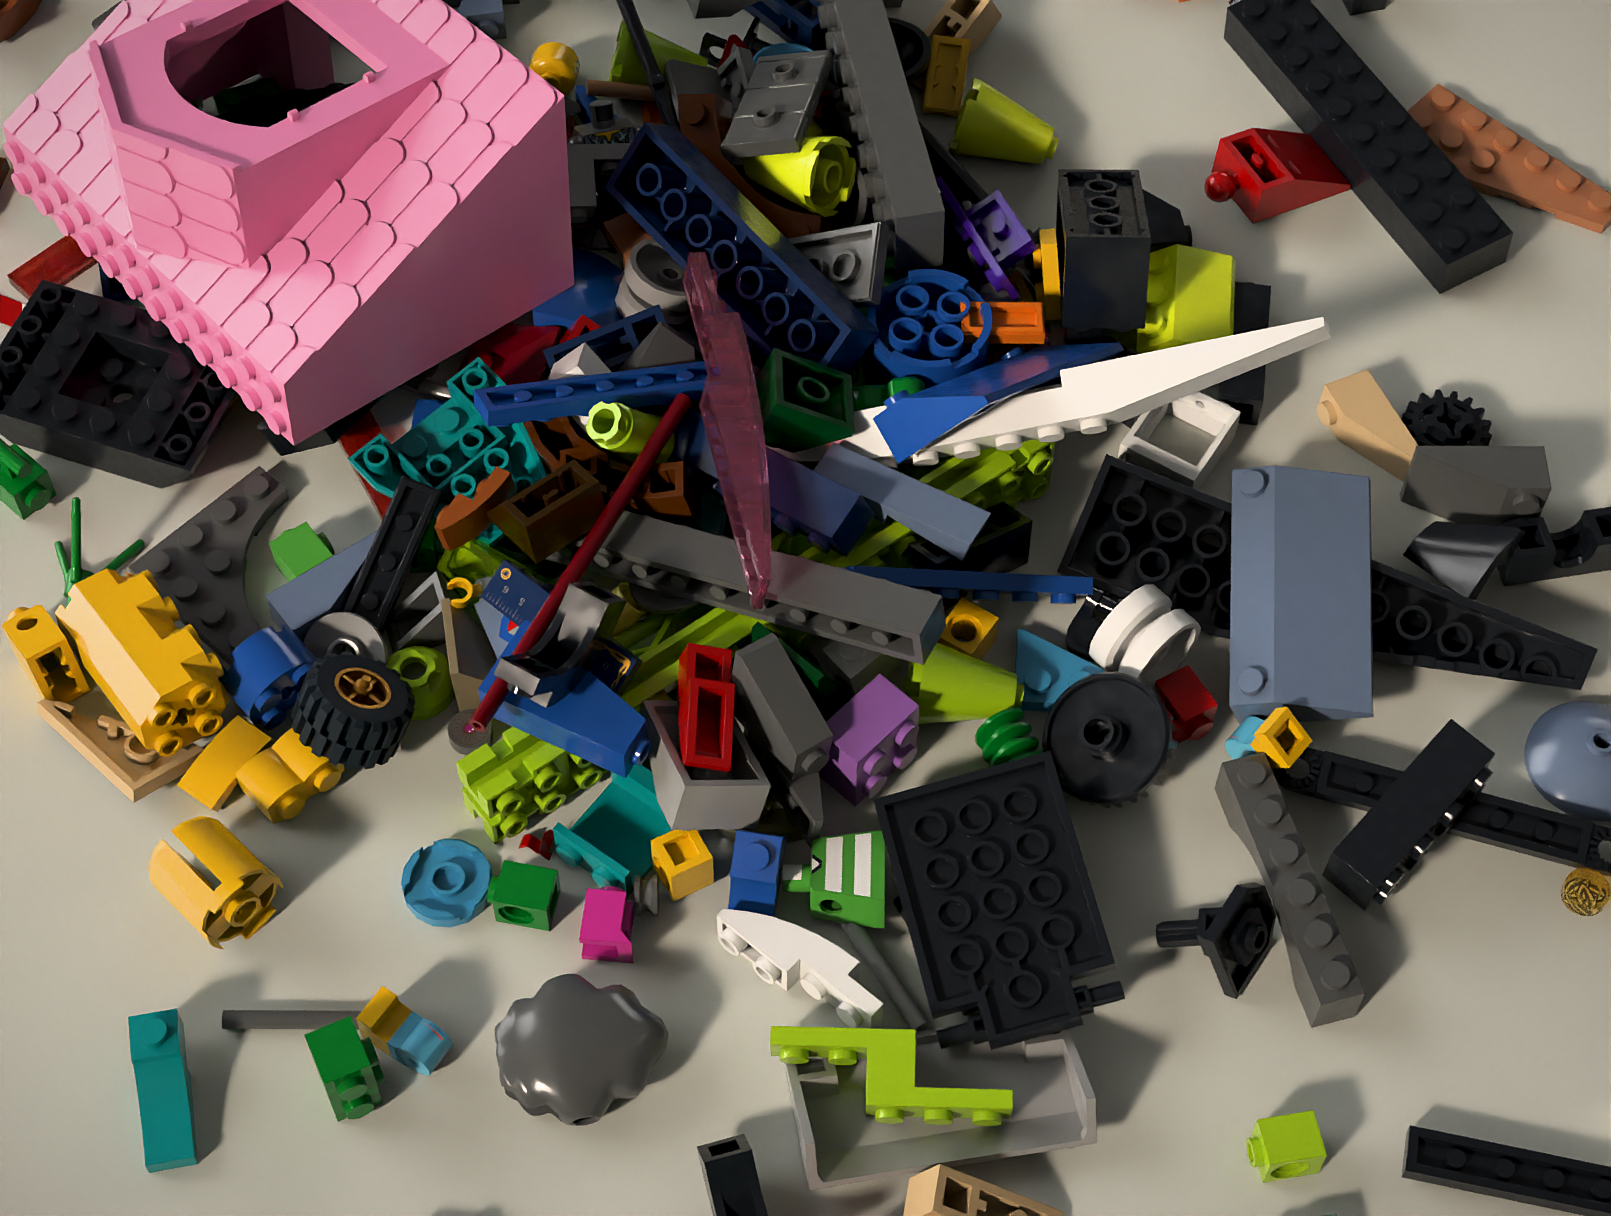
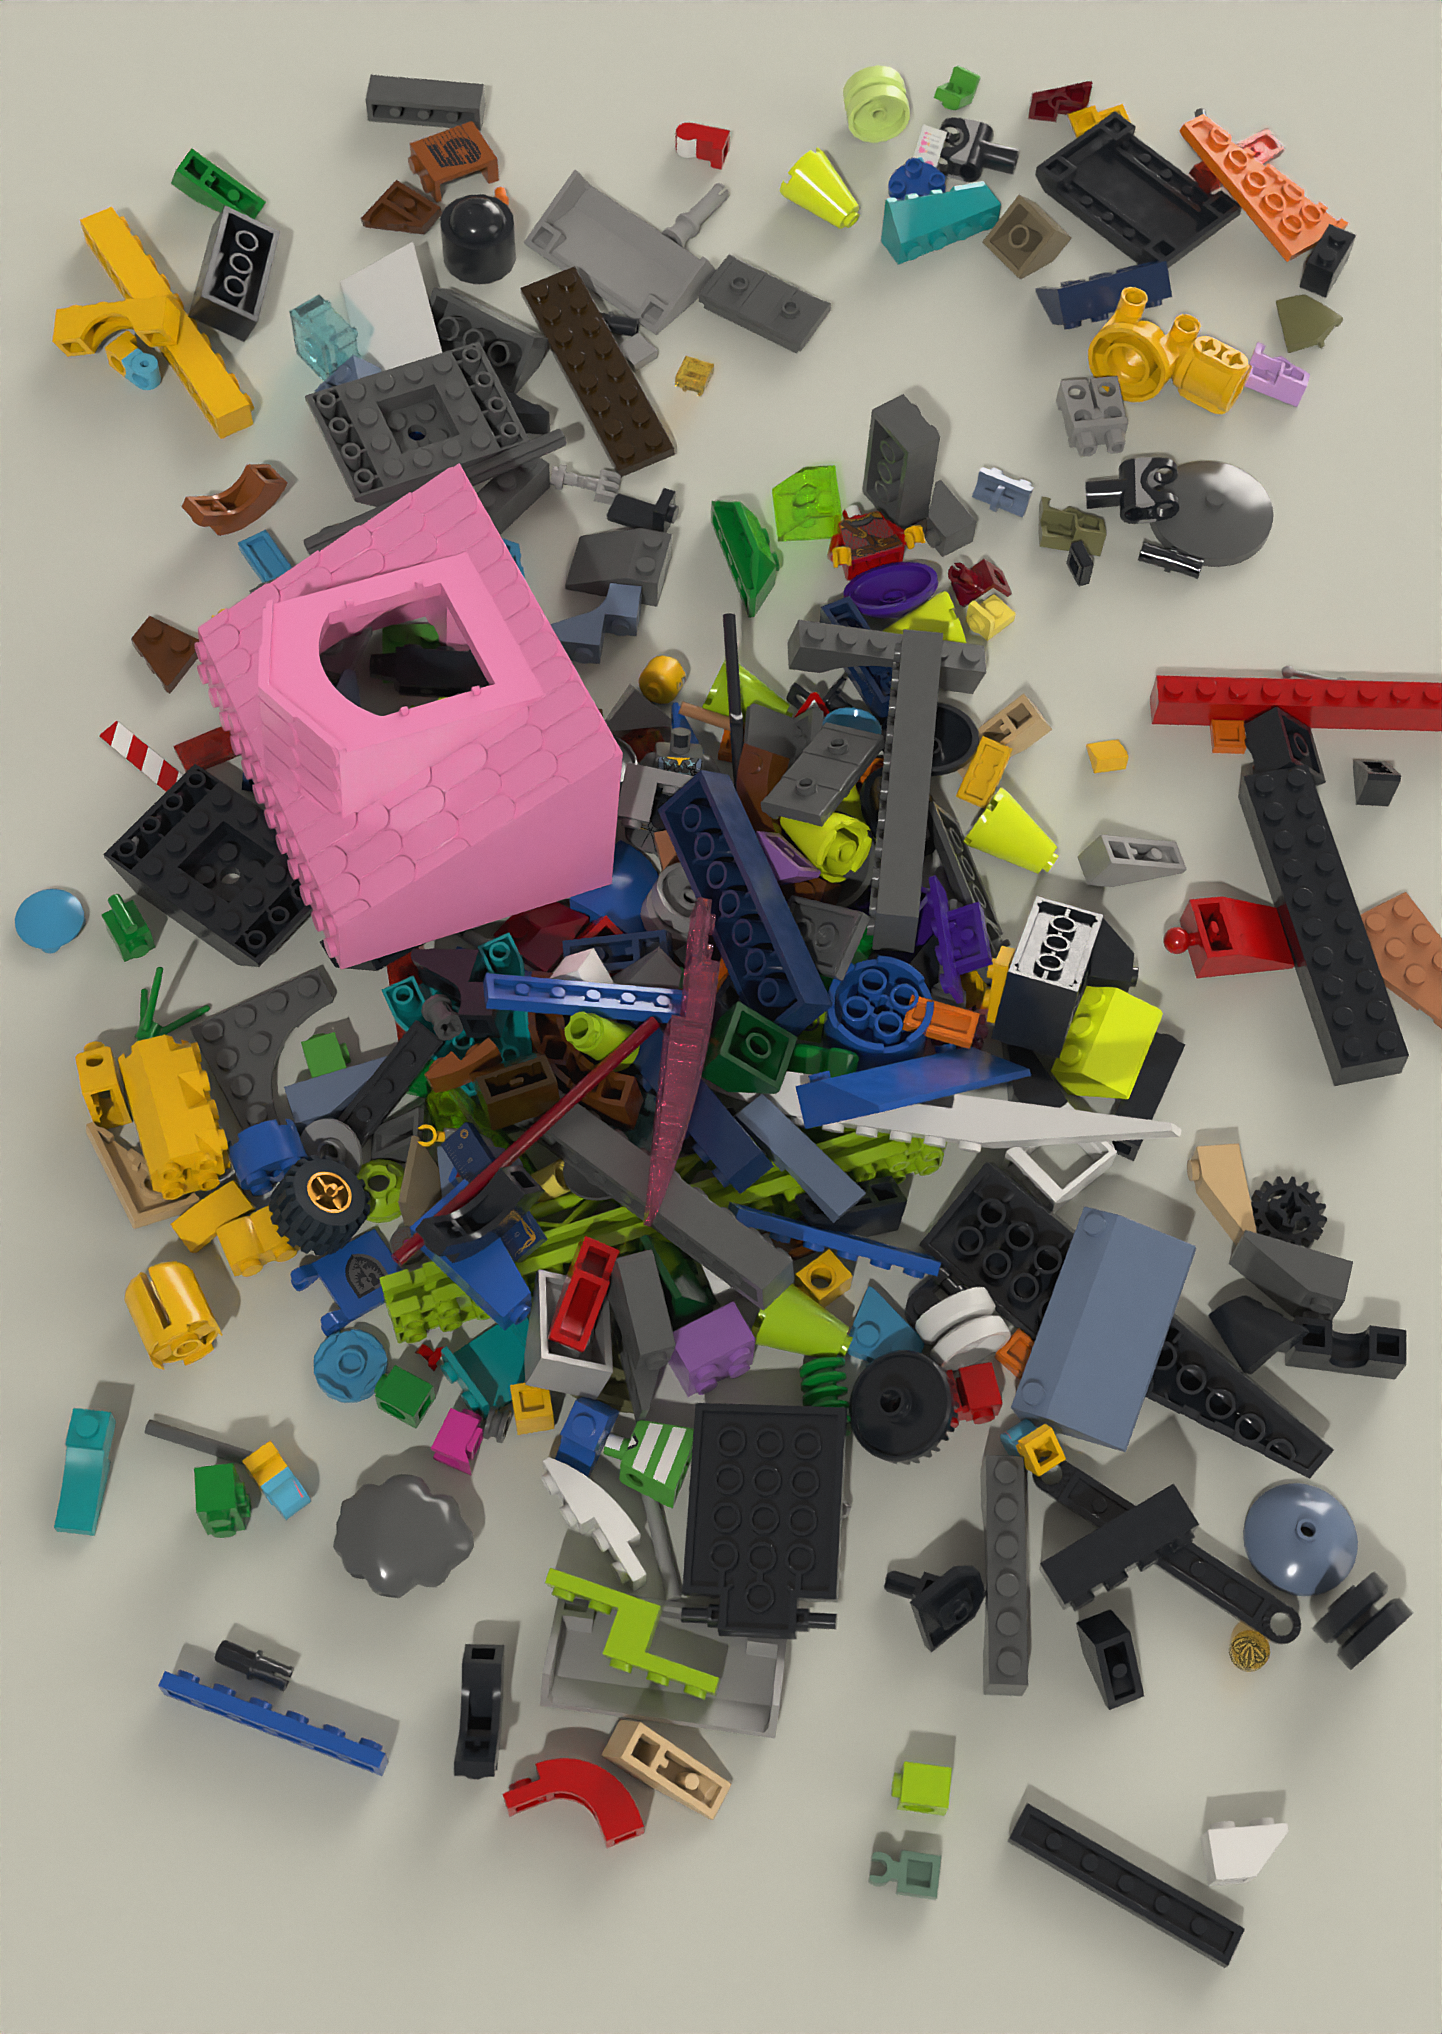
camera: 15 degrees right, 5 degrees up
(42, 52) = (264, 556): none -> dark azure tile
(417, 784) = (350, 1278): none -> blue flag
(427, 461) = (440, 1013): none -> dark grey bush
(439, 420) = (461, 977): none -> black arch
(776, 206) = (785, 860): none -> medium lavender slope
(1071, 31) = (1107, 756): none -> yellow slope
(1132, 124) = (1128, 860): none -> light grey slope
(1210, 655) = (1016, 1353): none -> orange tile
(1440, 942) = (1111, 1658): none -> black slope

